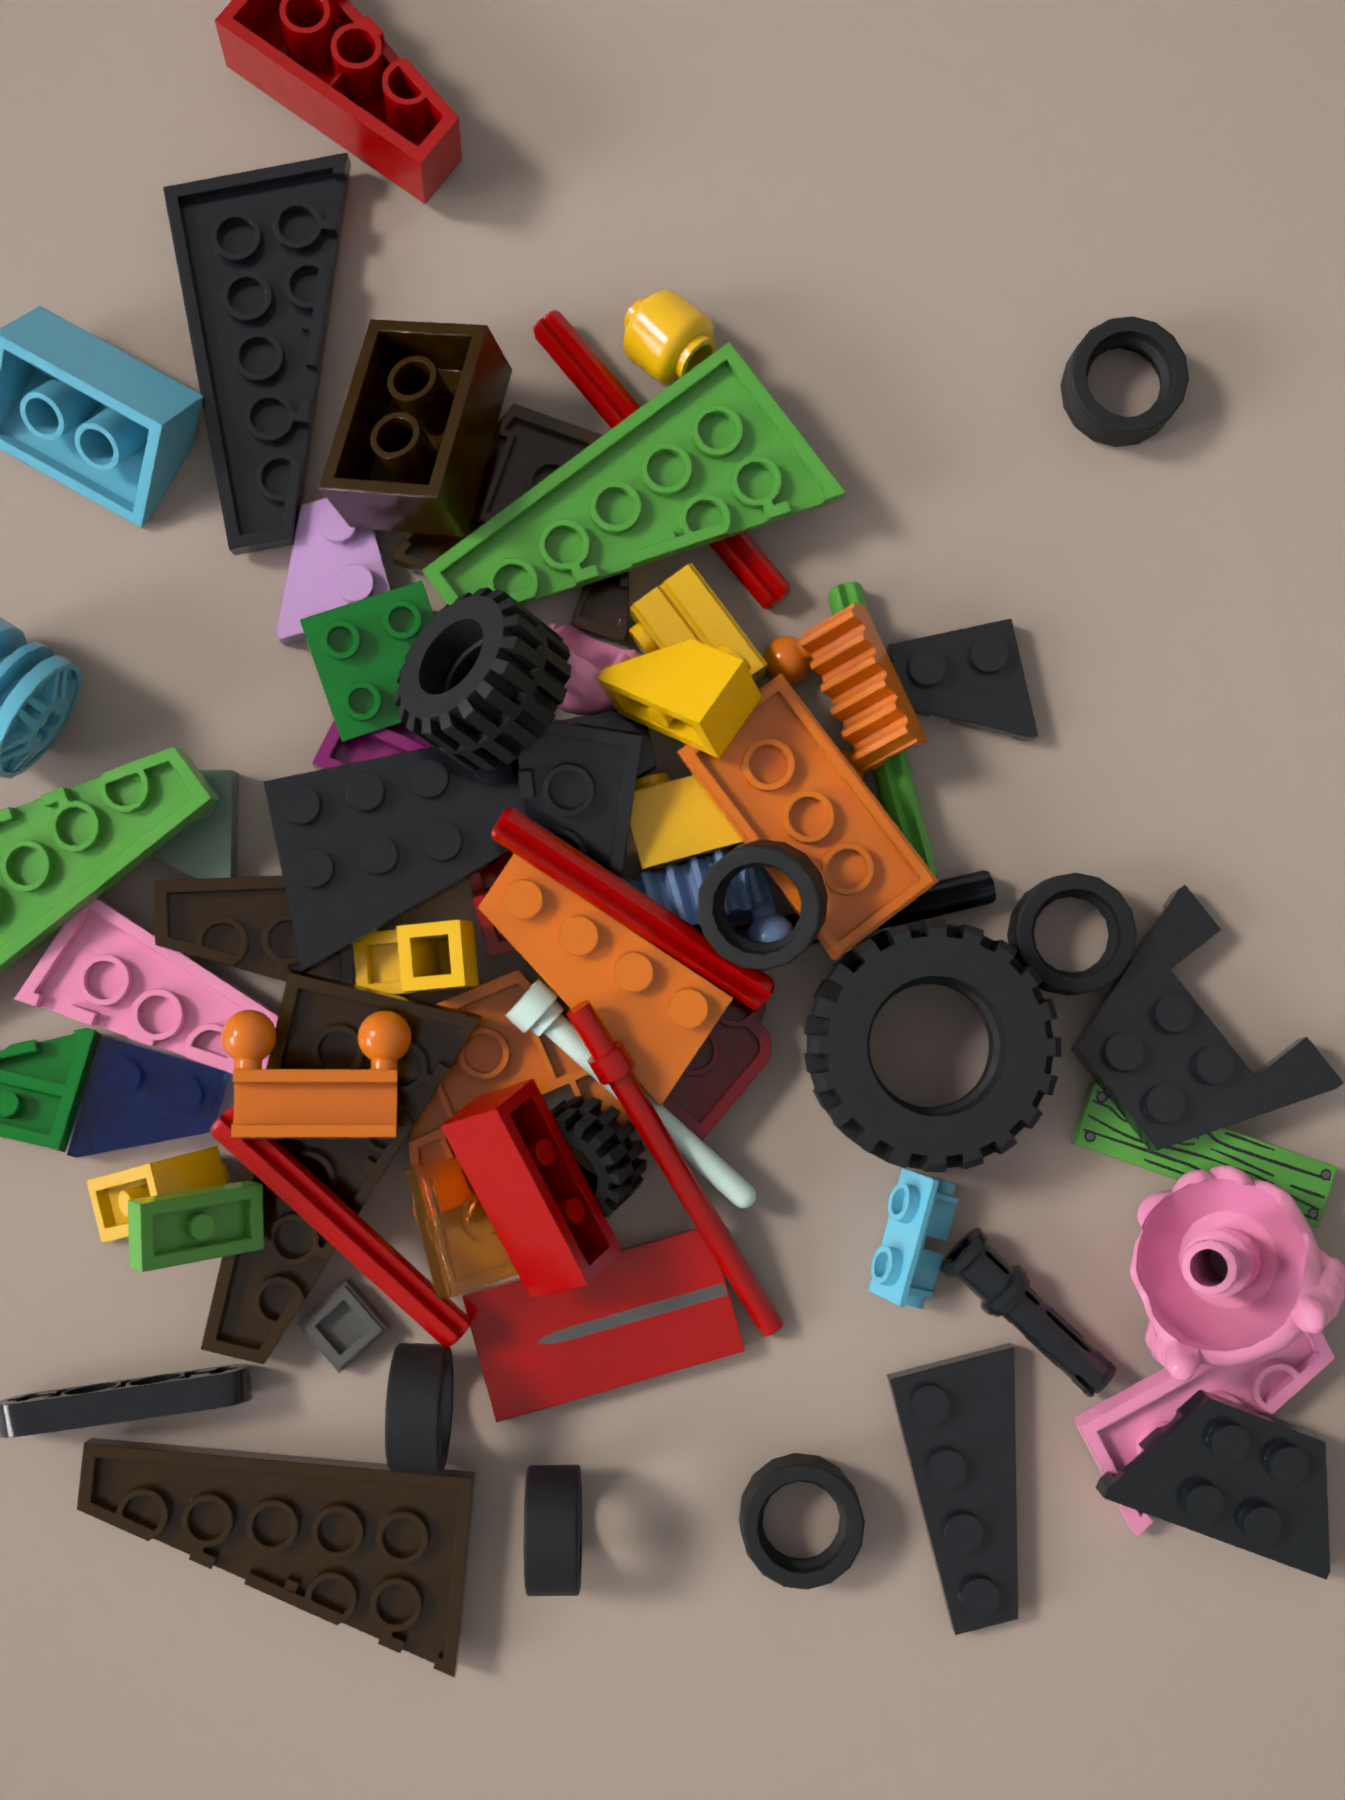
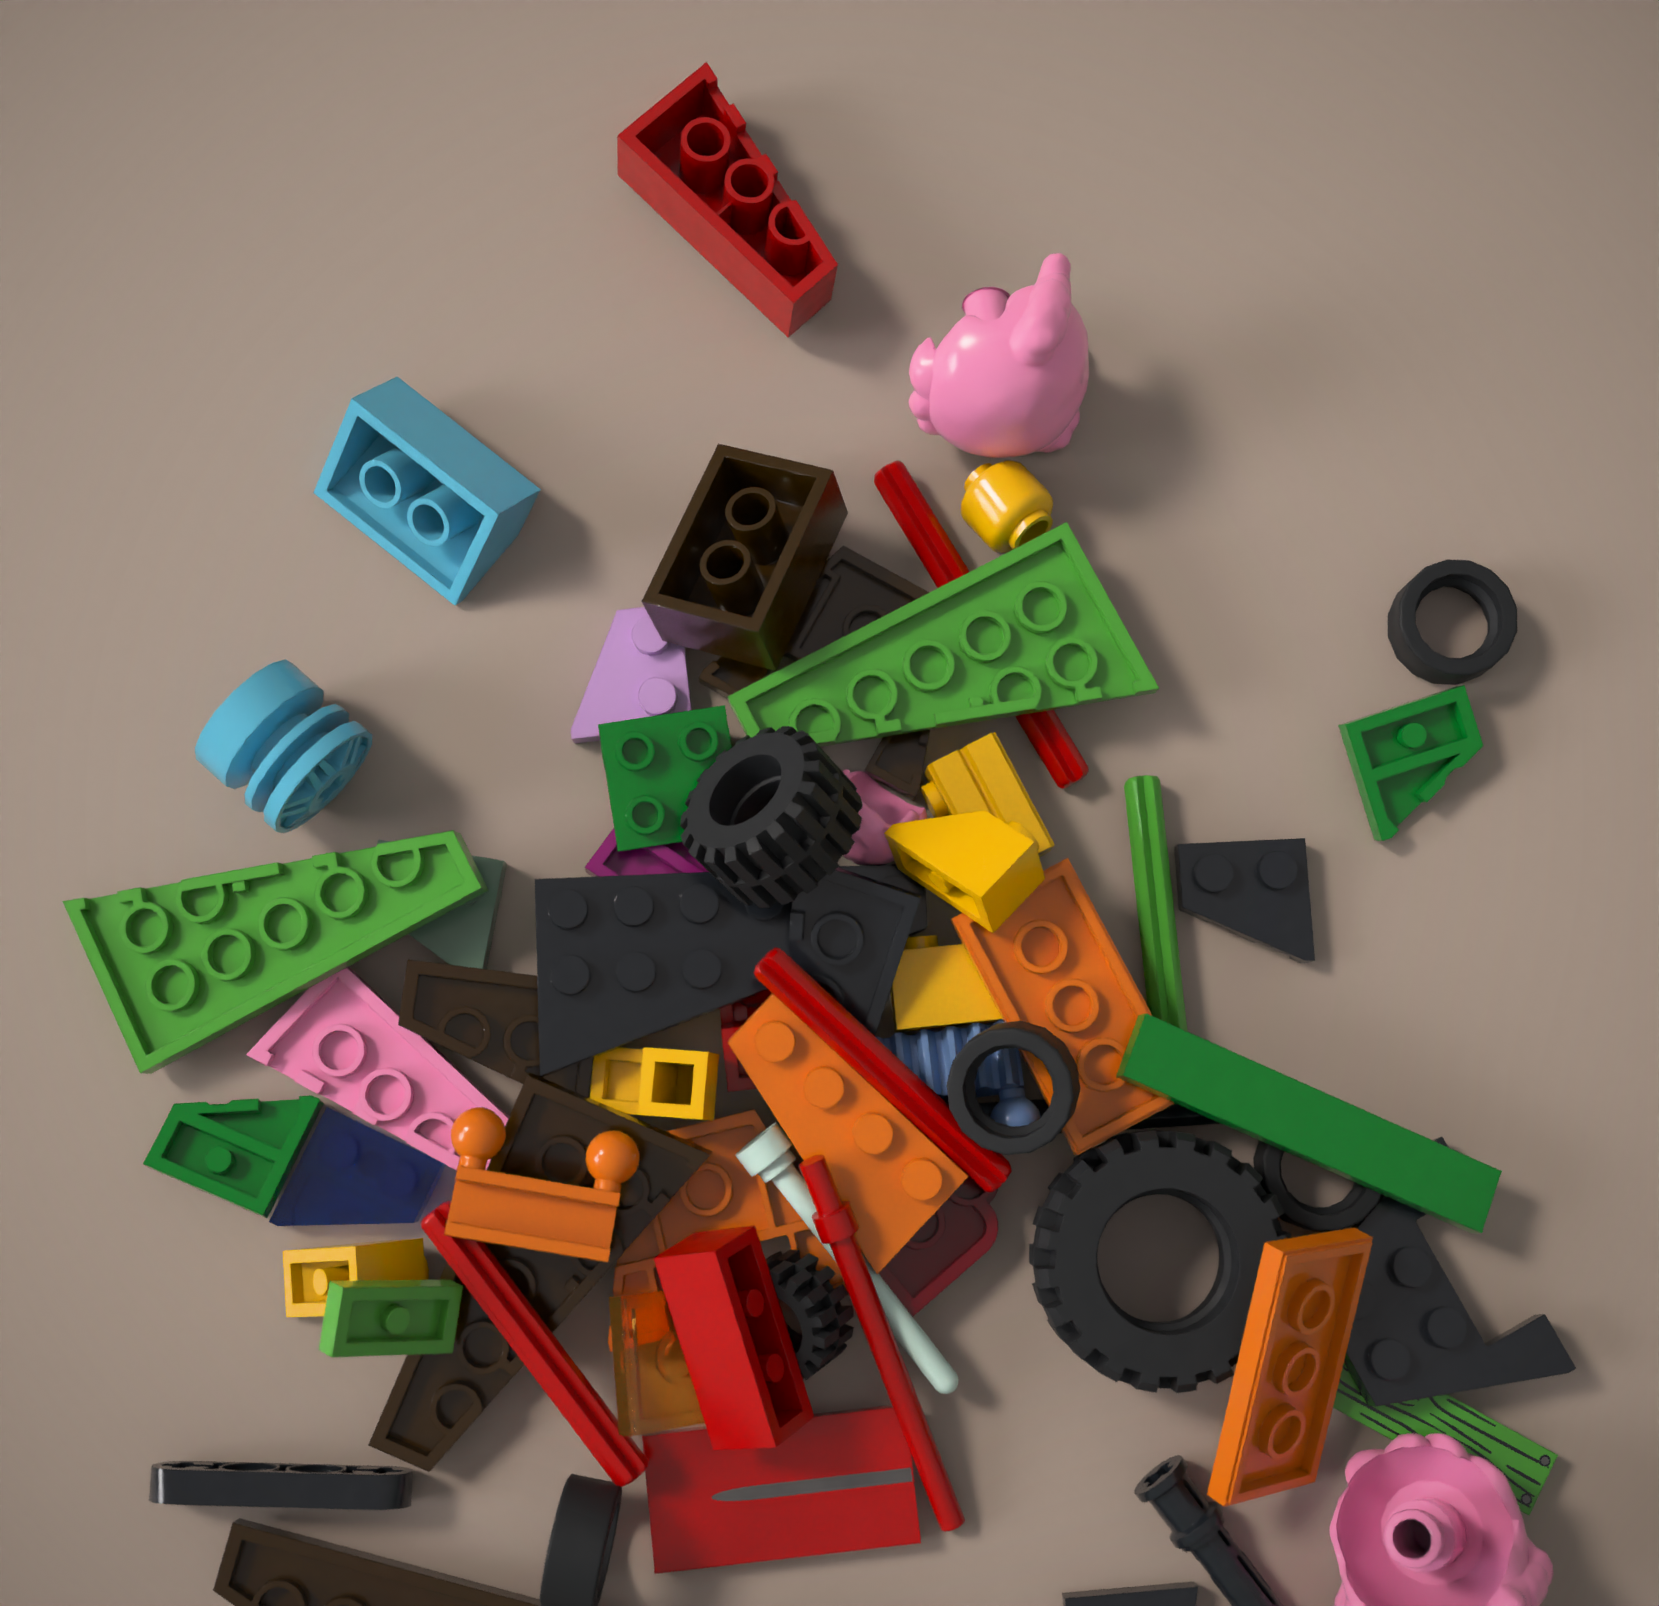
camera: 10 degrees right, 5 degrees down
(257, 301) = (608, 406): black wing -> none
(344, 1325) = (516, 1445): dark grey tile -> none
(645, 197) = (1007, 371): none -> bright pink piece
(858, 681) = (1143, 878): orange gear -> none
(902, 1266) = (1119, 1426): medium azure hinge -> none
(1053, 892) = (1308, 1123): none -> green tile
(1069, 1123) = (1289, 1364): none -> orange tile
(1099, 519) = (1408, 753): none -> green wing

